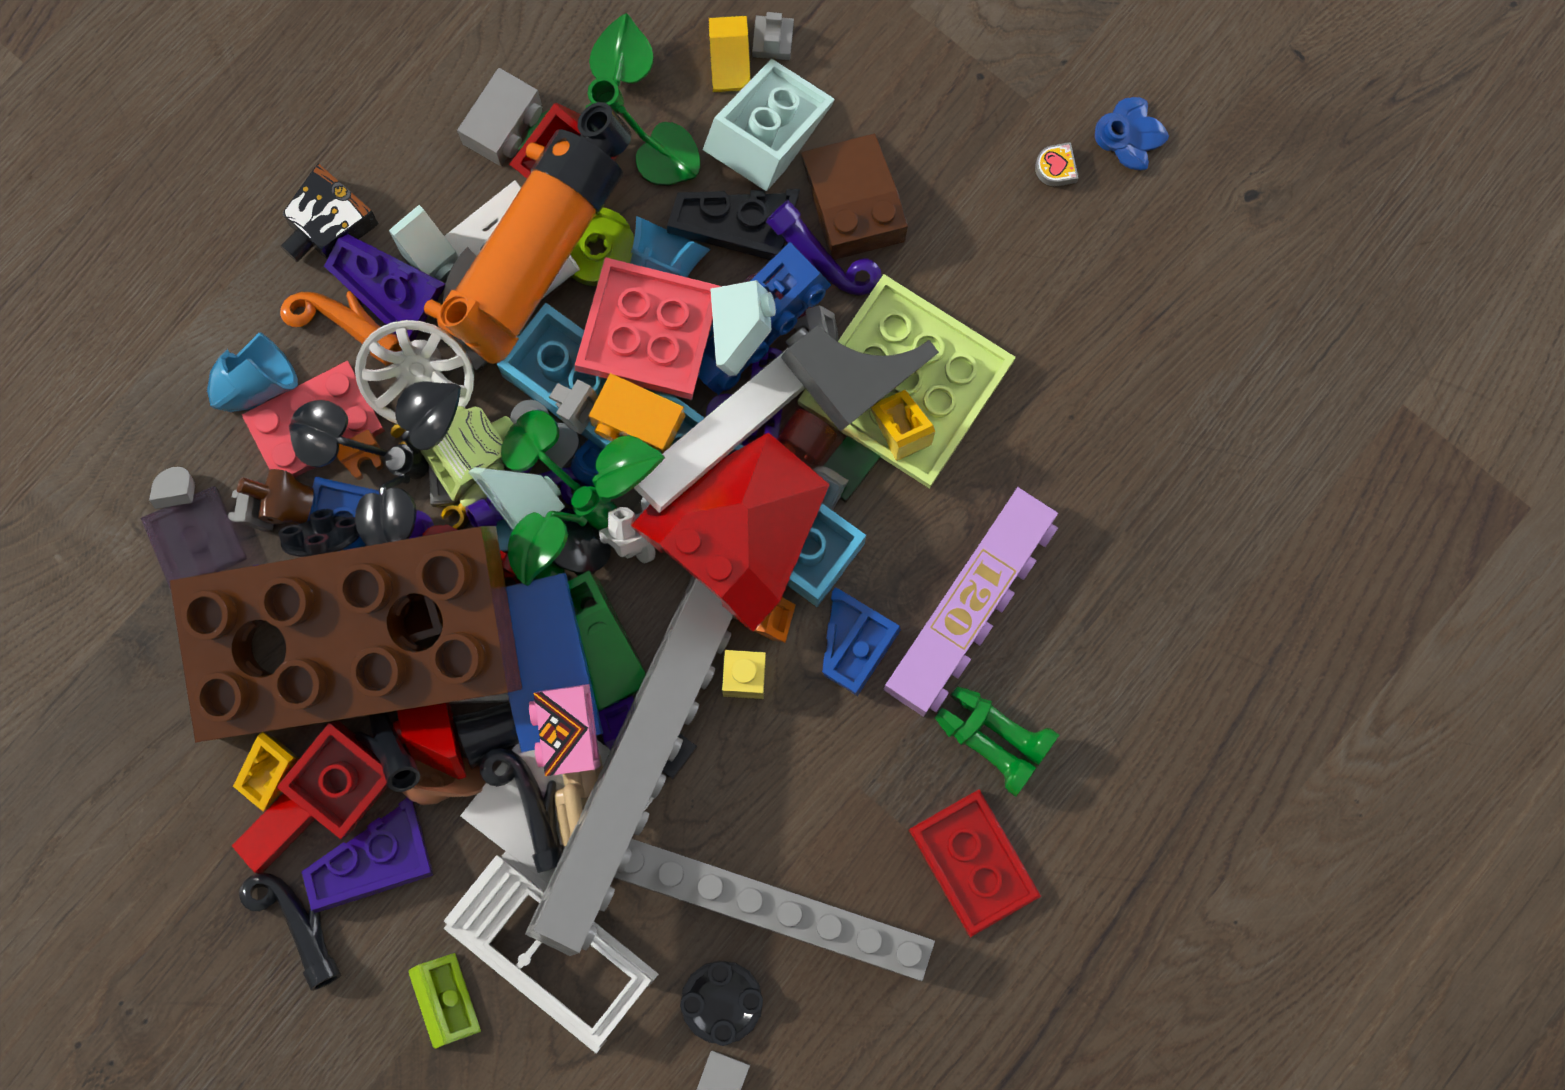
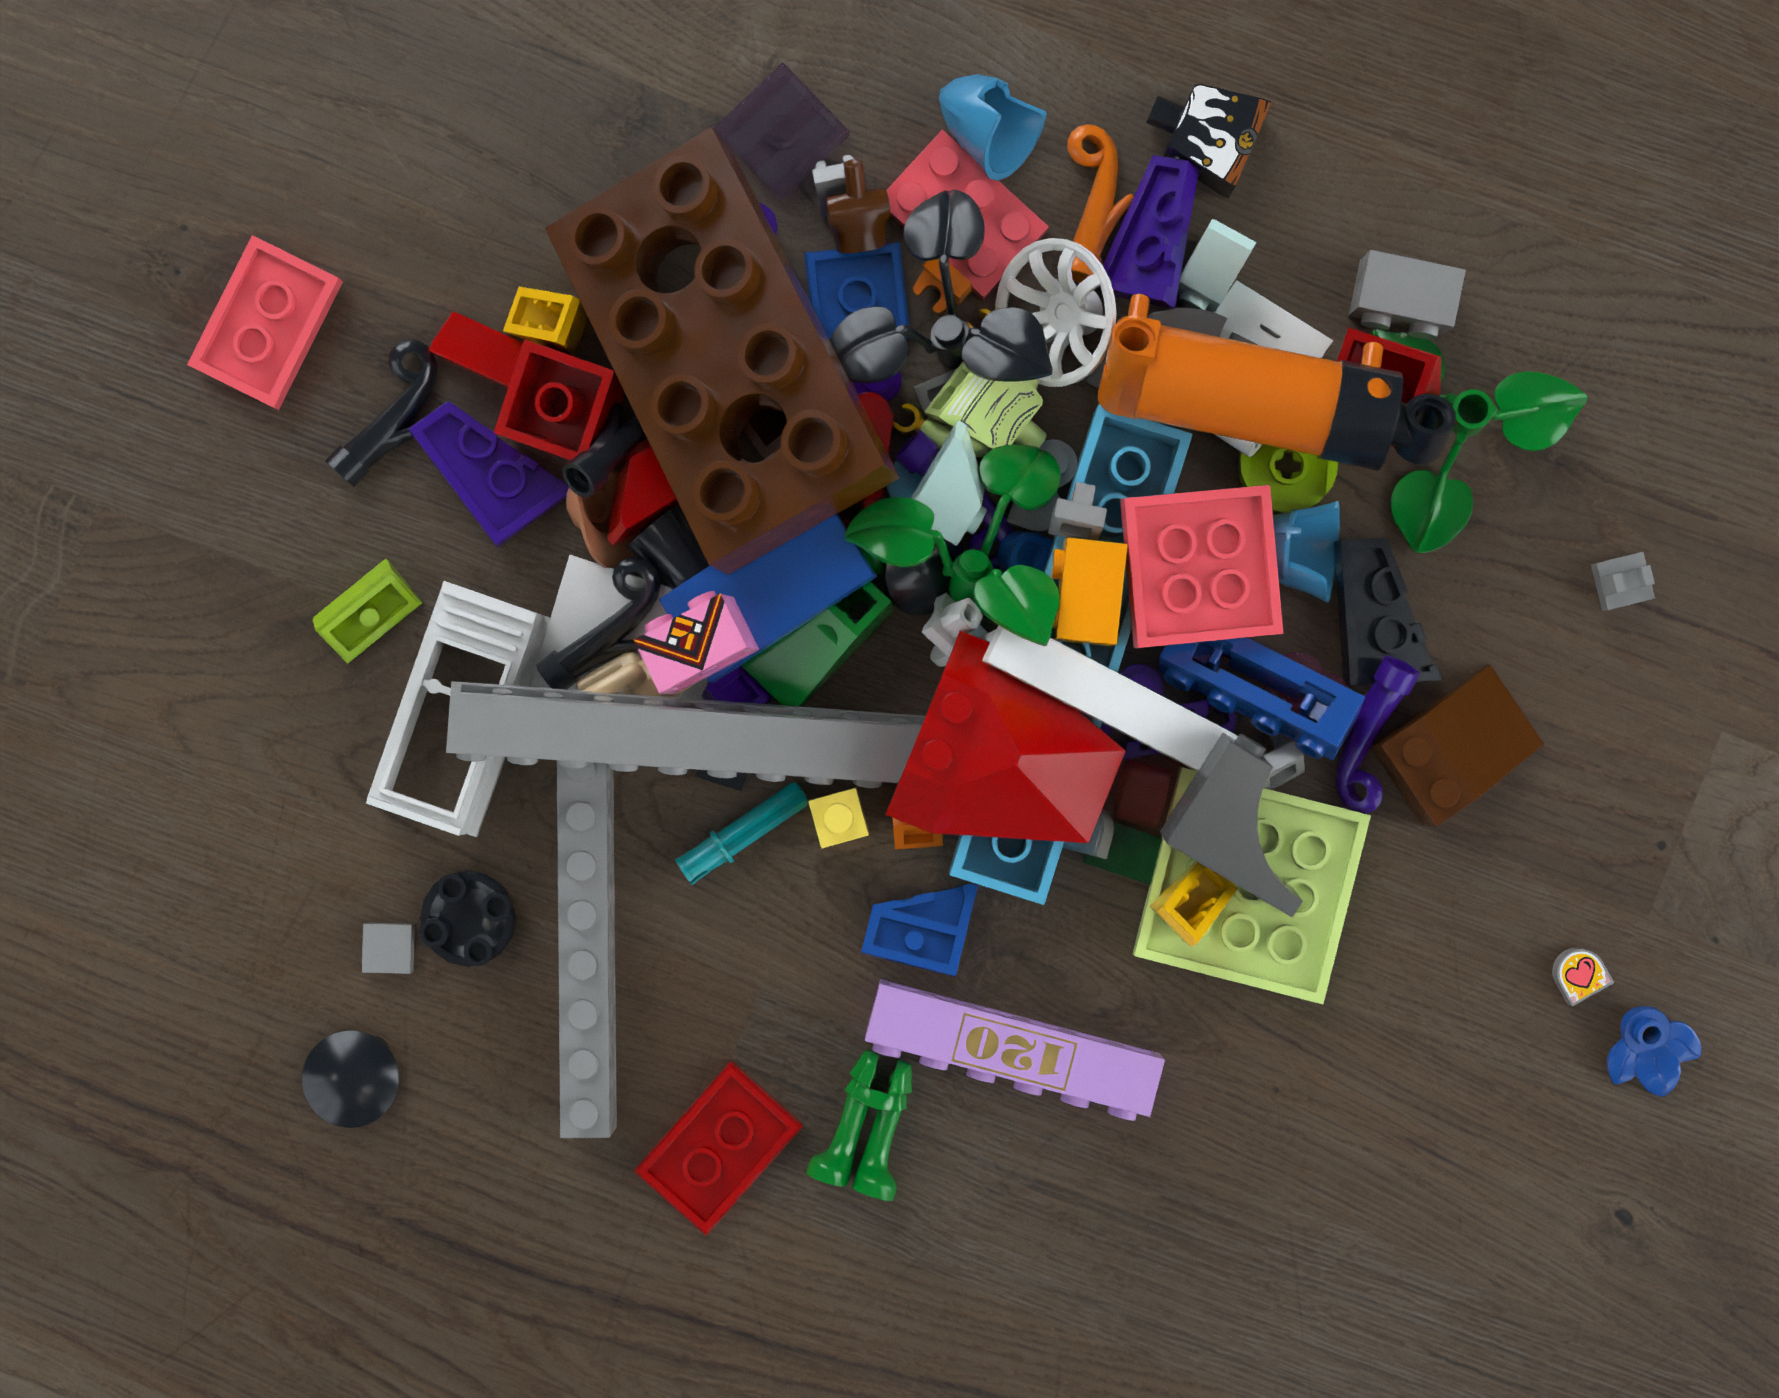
camera: 75 degrees right, 10 degrees up
(172, 488) = (829, 84): light grey tile -> none
(181, 1001) = (265, 322): none -> coral plate
(319, 535) = (827, 275): black dish -> none
(729, 53) = (1584, 536): yellow slope -> none
(730, 757) = (741, 833): none -> teal axle
(740, 322) = (1244, 673): light aqua slope -> none
(767, 124) = (1510, 613): light aqua slope -> none

